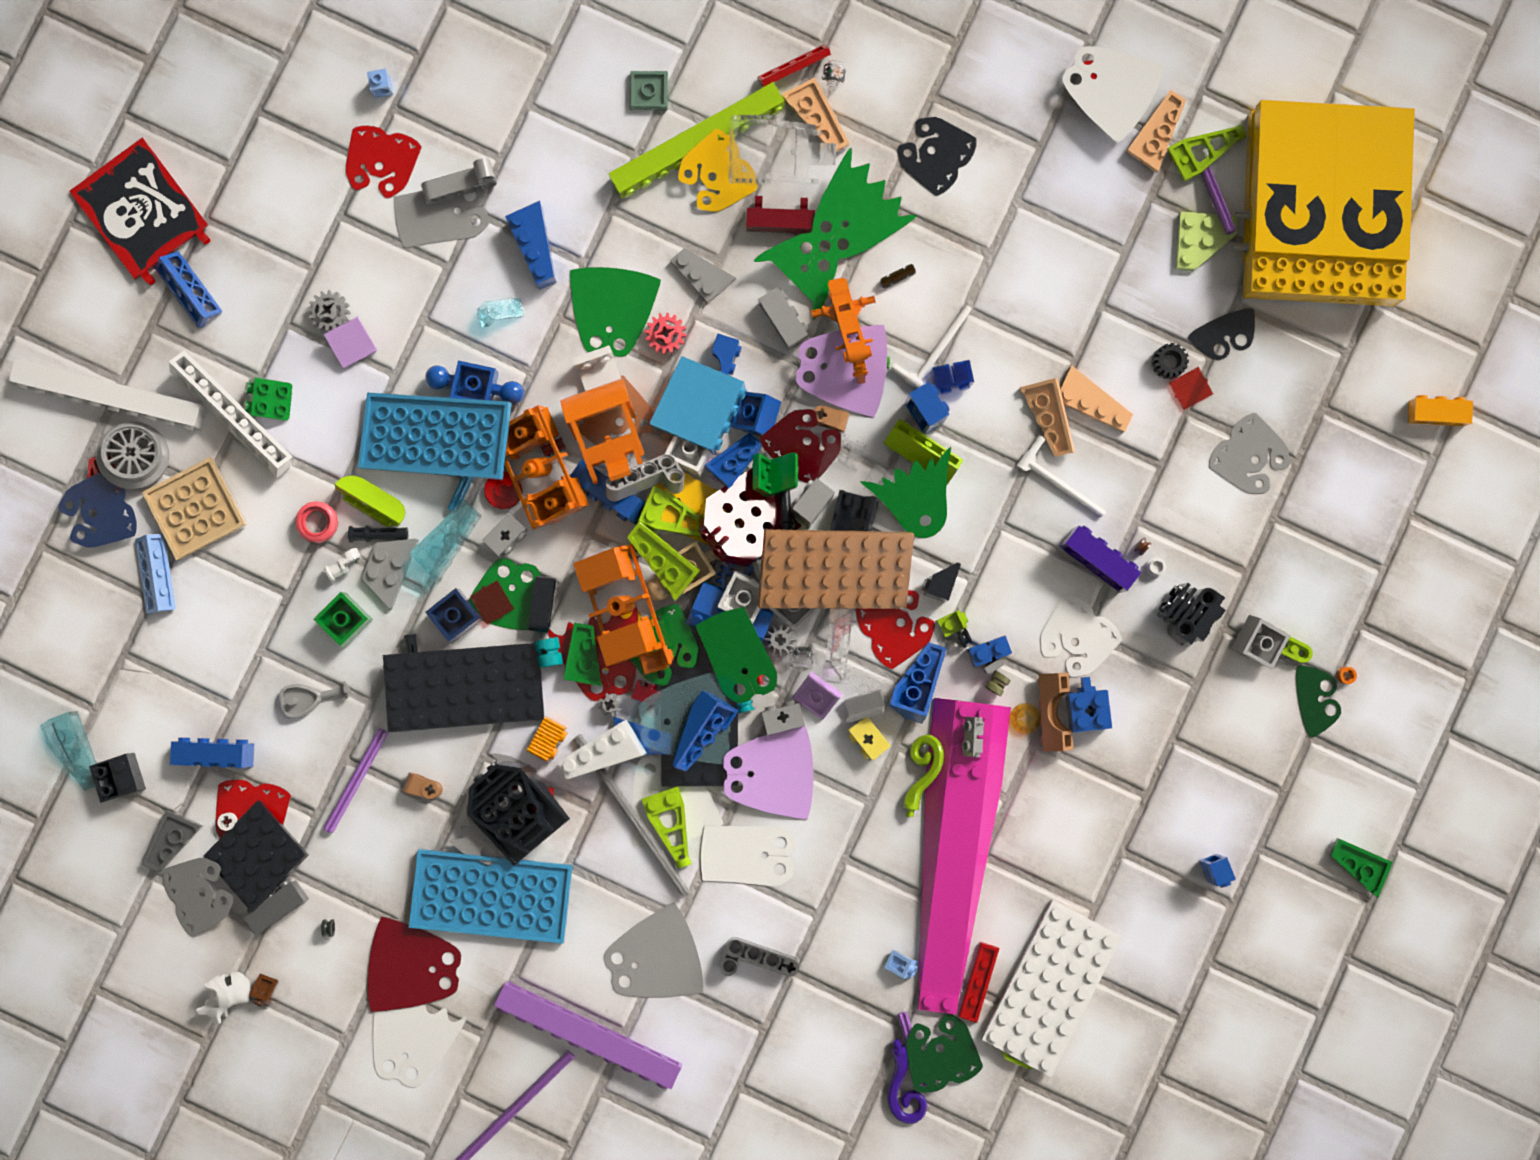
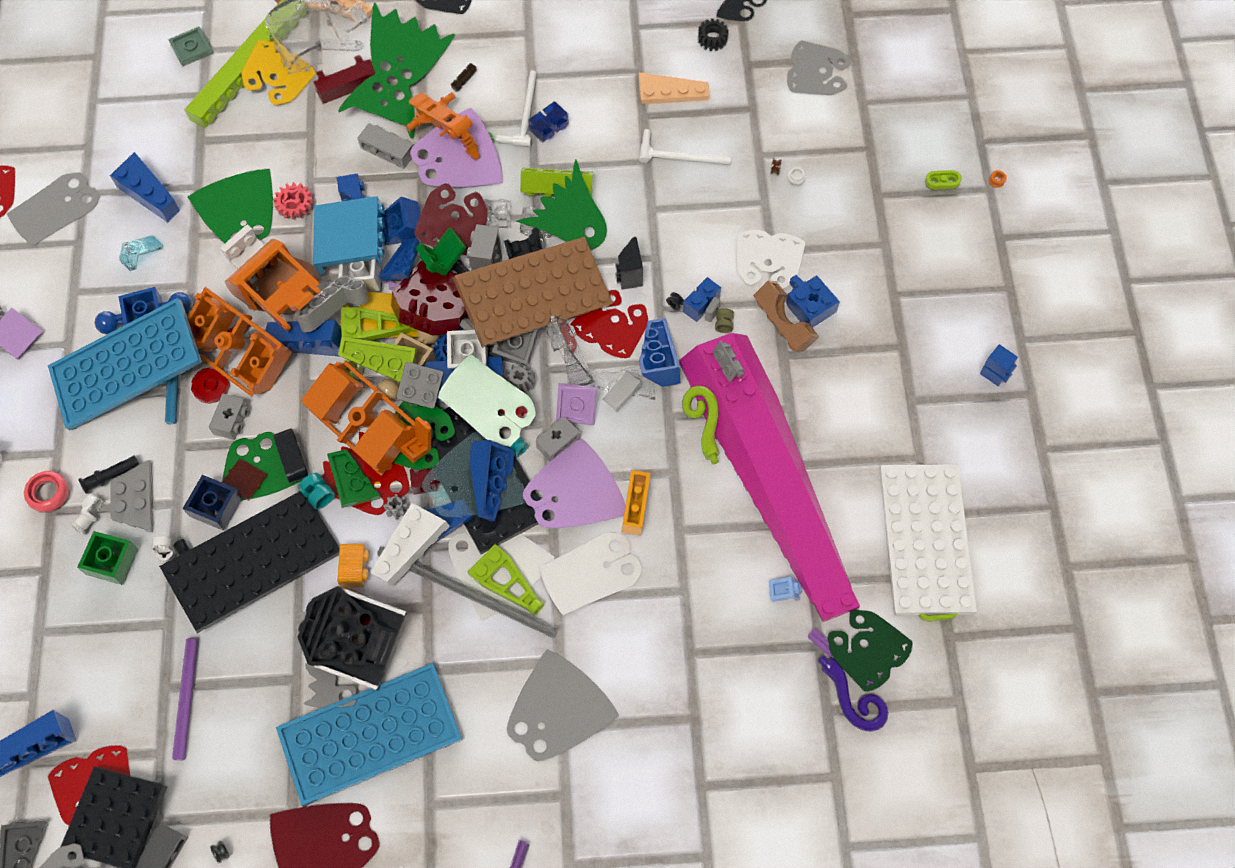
camera: 25 degrees left, 20 degrees down
(223, 817) = (64, 803): white bush -> none
(300, 700) = (98, 654): light grey piece -> none
(371, 500) = (90, 449): lime brick -> none
(393, 638) = (161, 547): none -> white connector
(419, 786) = (250, 668): medium nougat piece -> none
(446, 540) = (175, 446): clear light blue wedge -> none
(460, 183) = (60, 174): light grey beam -> none
(589, 1035) = (530, 812): medium lavender brick -> none
(684, 610) = (419, 385): none -> light grey bracket
(701, 274) = (303, 149): light grey wing -> none
(760, 960) = (656, 654): dark grey beam -> none
(802, 658) = (546, 383): clear head -> none
(817, 818) = (635, 502): none -> light orange brick
(833, 418) = (465, 190): medium nougat piece -> none
(878, 744) = (651, 417): light yellow brick -> none
(927, 407) = (539, 144): blue brick -> none
(952, 623) = (657, 297): lime bracket -> none
(978, 982) = (862, 569): red tile -> none
(1018, 712) = (764, 344): clear yellow gear -> none
(1050, 414) = (642, 110): light nougat wing -> none
(1100, 559) = (747, 186): dark purple brick -> none
(1190, 612) = (847, 189): black piece -> none
(1191, 388) = (741, 47): clear red piece -> none
(1260, 641) = (913, 184): light grey slope -> none
(1308, 690) = (977, 206): dark green piece -> none
(1363, 865) = (1112, 306): green wing -> none

